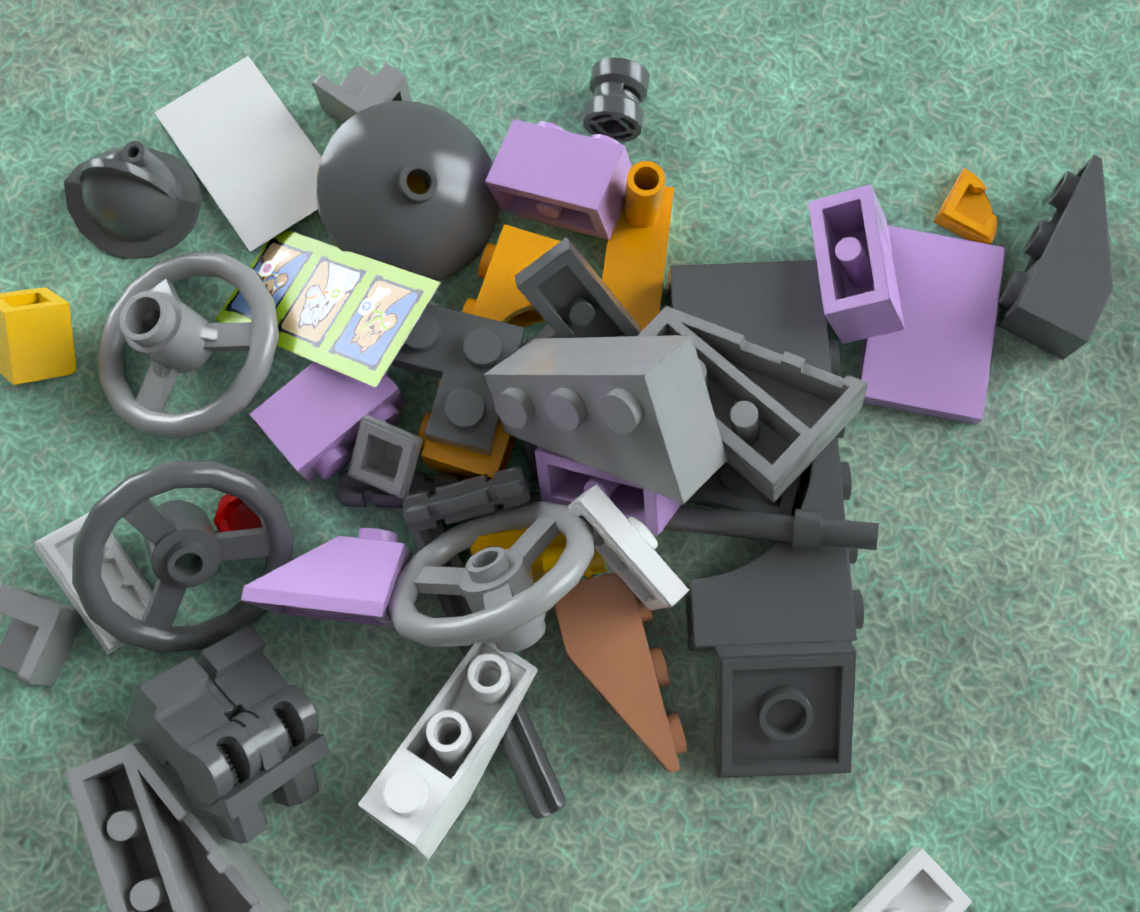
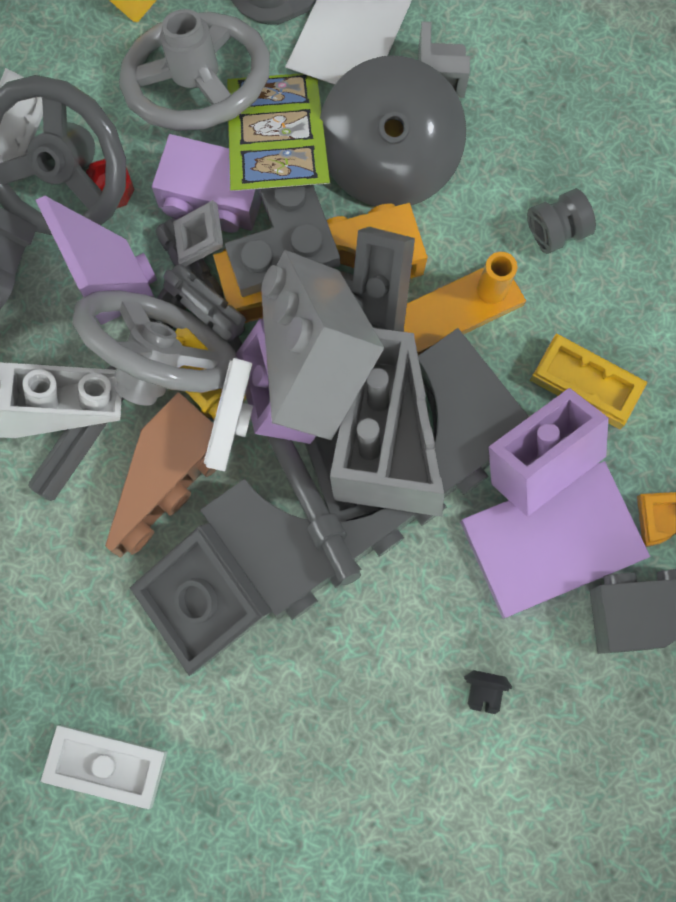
camera: 55 degrees right, 0 degrees up
(560, 177) = (473, 217): lavender brick -> none
(781, 190) = (591, 377): none -> yellow plate
(1042, 485) = (488, 689): none -> black piece

